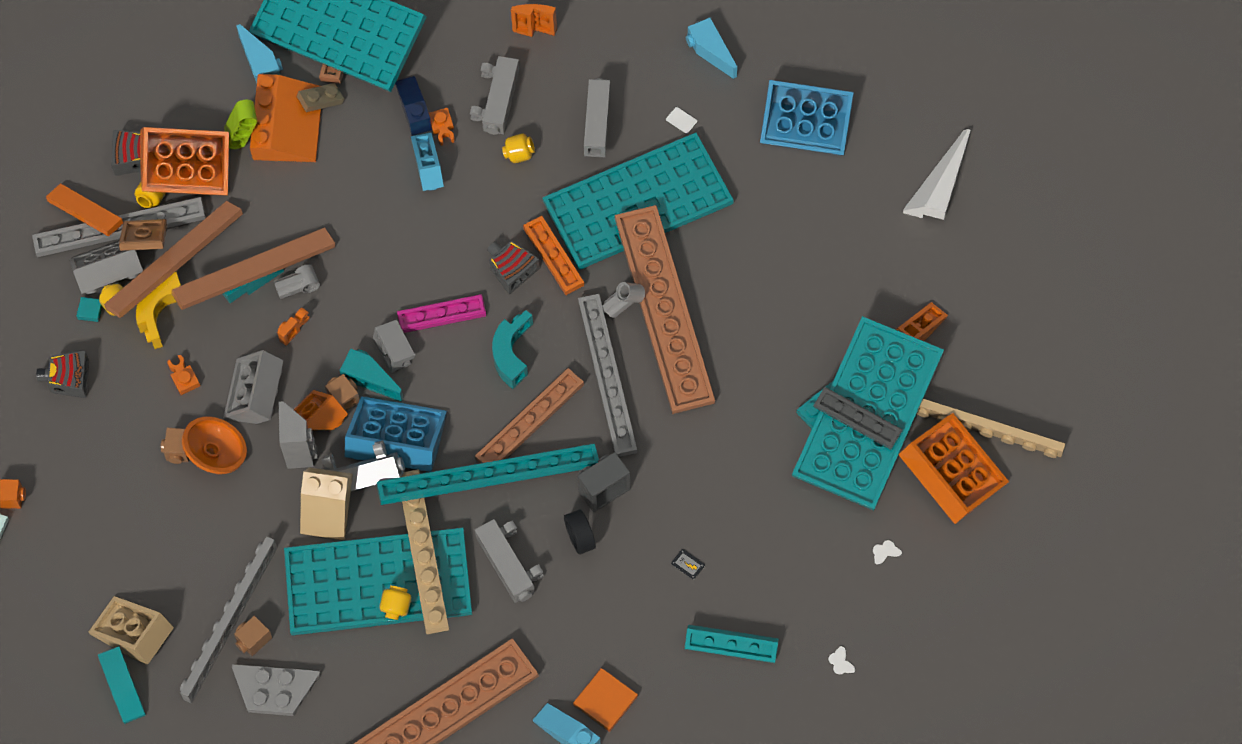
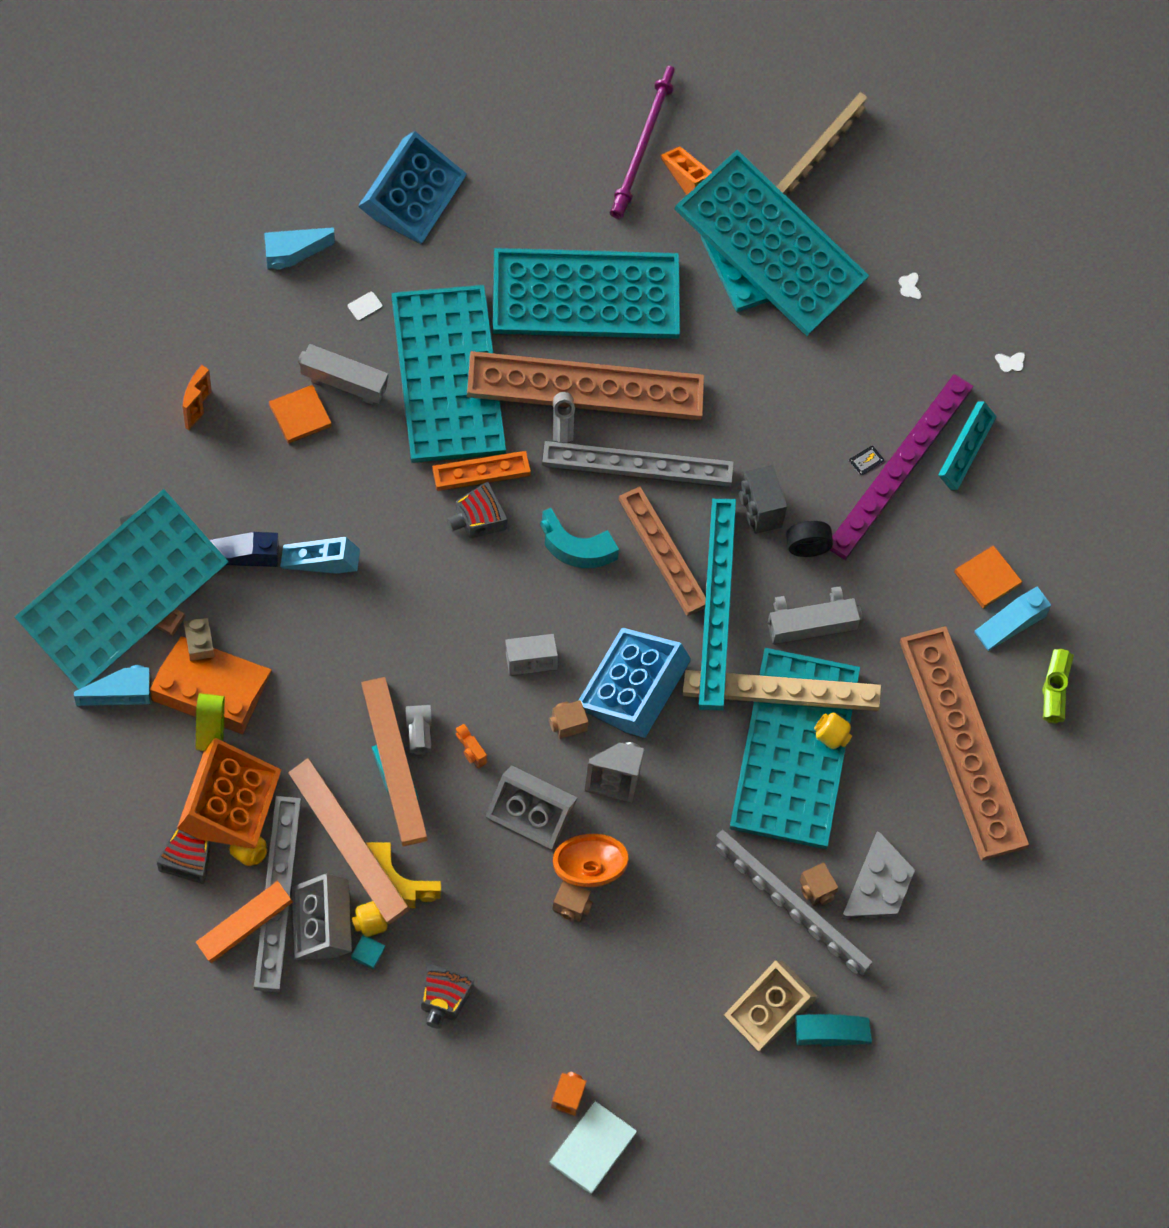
camera: 80 degrees left, 0 degrees up
(143, 234) = (309, 862): medium nougat tile -> none
(184, 377) = (490, 876): orange plate -> none
(321, 411) = (578, 747): orange slope -> none
(325, 503) = (697, 764): tan slope -> none
(369, 375) = (556, 686): teal slope -> none
(370, 471) = (676, 723): brick -> none
(441, 313) = (506, 598): dark pink tile -> none
(442, 124) = (284, 532): orange plate -> none
(500, 95) = (270, 462): light grey brick -> none
(518, 148) = (342, 463): yellow head -> none
(556, 104) = (300, 414): none -> orange tile
(691, 593) = (900, 466): none -> magenta plate
(761, 284) = (586, 293): none -> teal plate
(858, 418) = (777, 251): dark grey tile -> none
(874, 283) = (623, 195): none -> magenta bar
(935, 192) = (541, 104): white wedge -> none
(953, 468) = (853, 193): orange slope -> none

